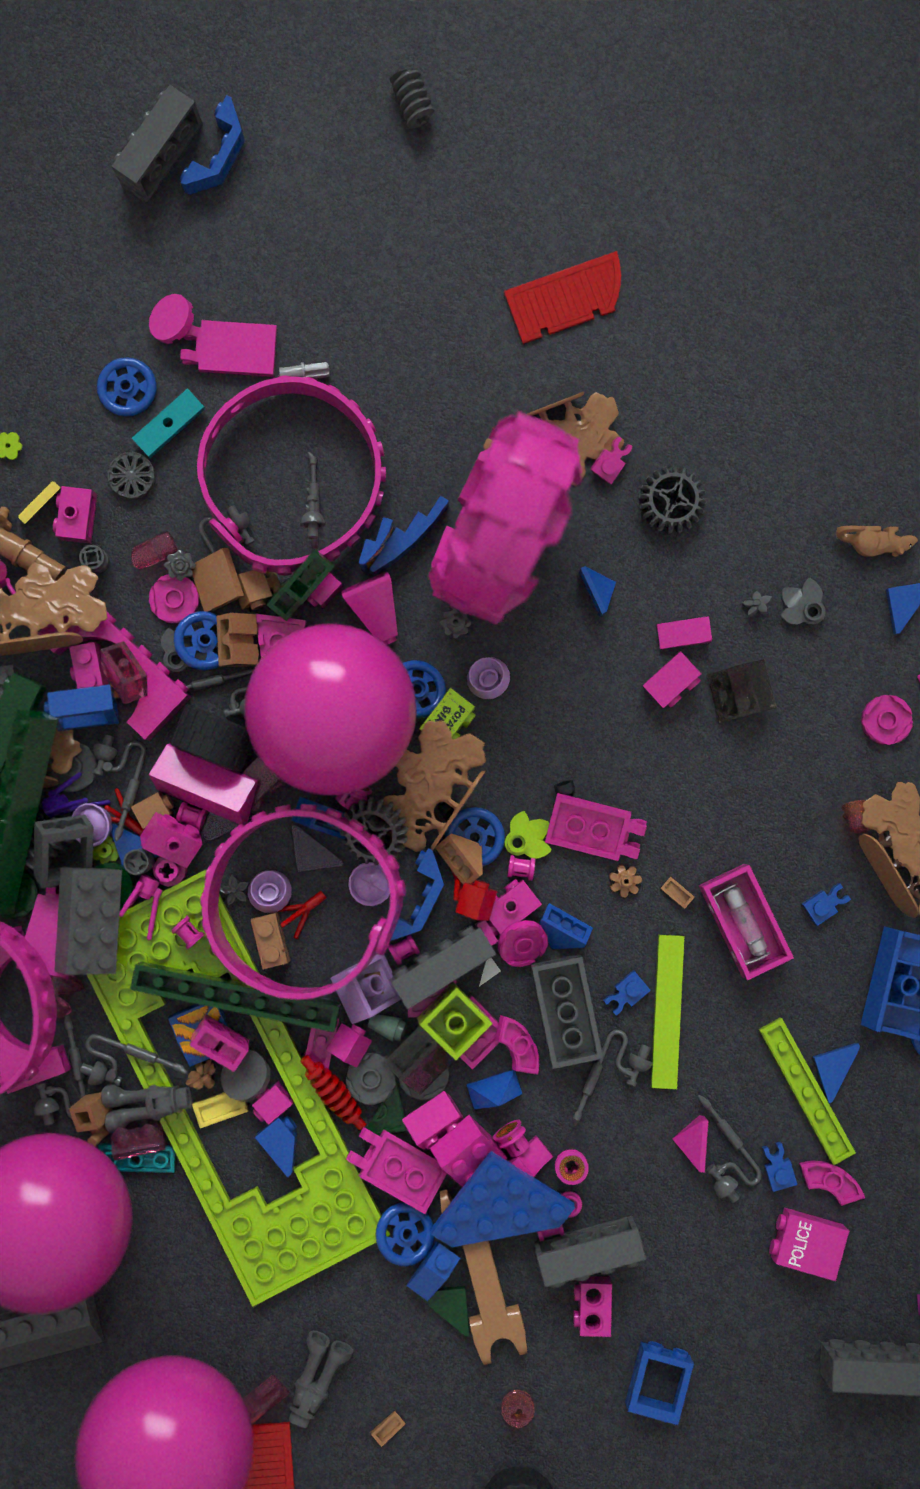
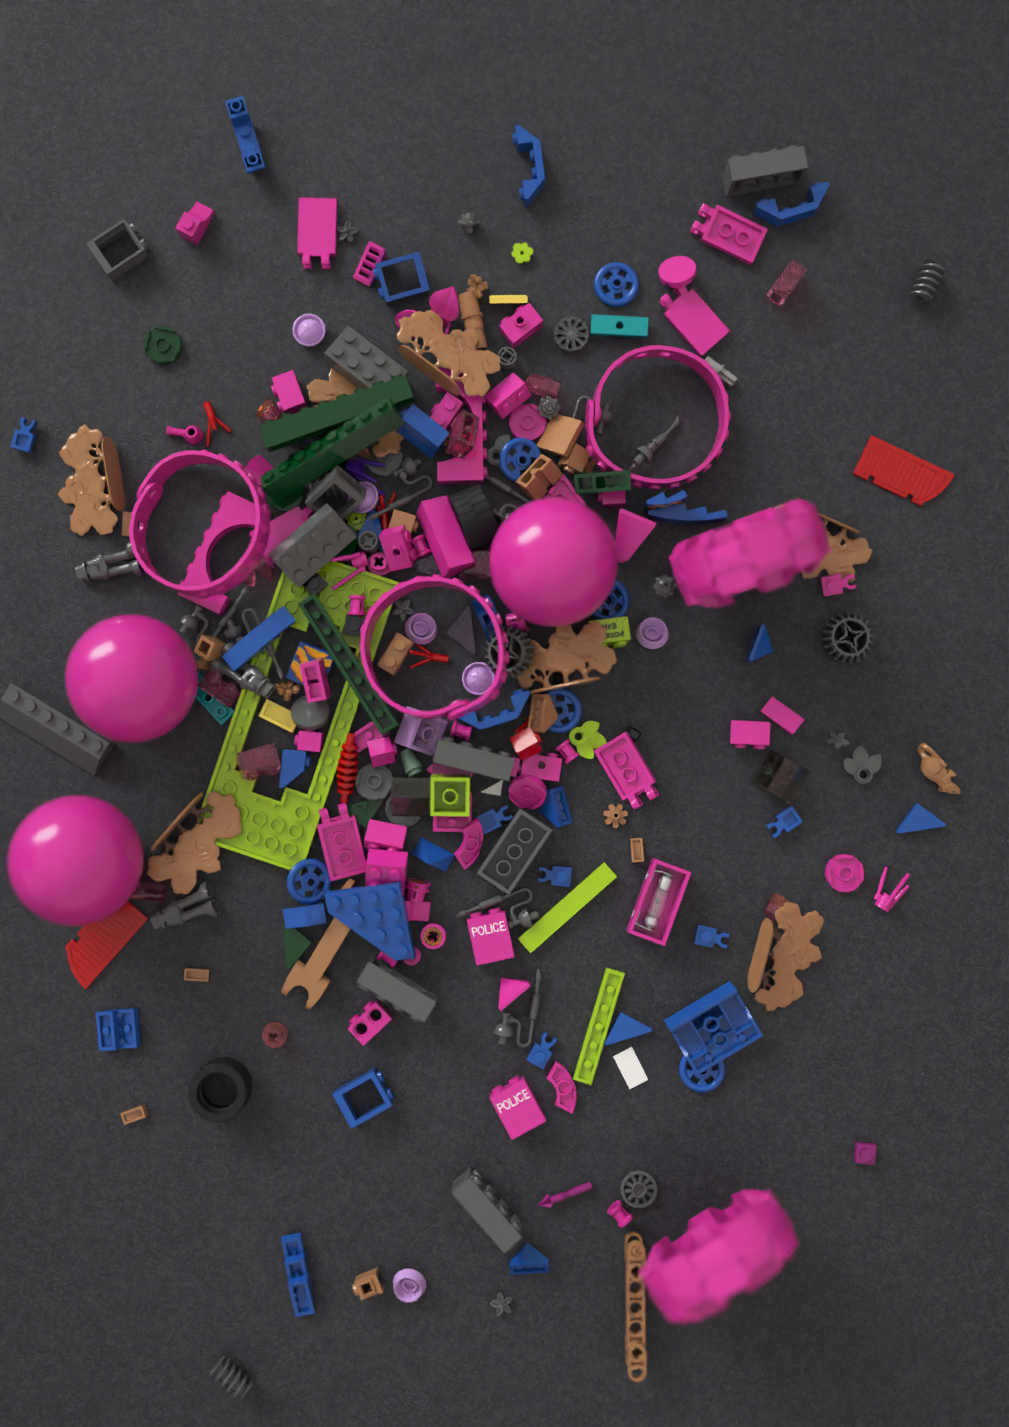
camera: 50 degrees right, 0 degrees up
(126, 1058) = (258, 639): none -> blue slope
(128, 952) = (315, 584): none -> black plate
(129, 593) = (507, 395): none -> dark pink brick
(183, 234) = (729, 233): none -> dark pink tile
(202, 954) = (353, 625): none -> black plate
(244, 1173) = (258, 762): none -> clear pink brick
(266, 1312) = (196, 846): none -> medium nougat plant
(283, 228) = (786, 283): none -> clear pink brick
(516, 1003) = (491, 820): none -> blue plate
(624, 1112) = (490, 936): none -> dark pink brick
(785, 724) = (786, 819): none -> blue plate
(874, 1099) = (630, 1067): none -> white sticker

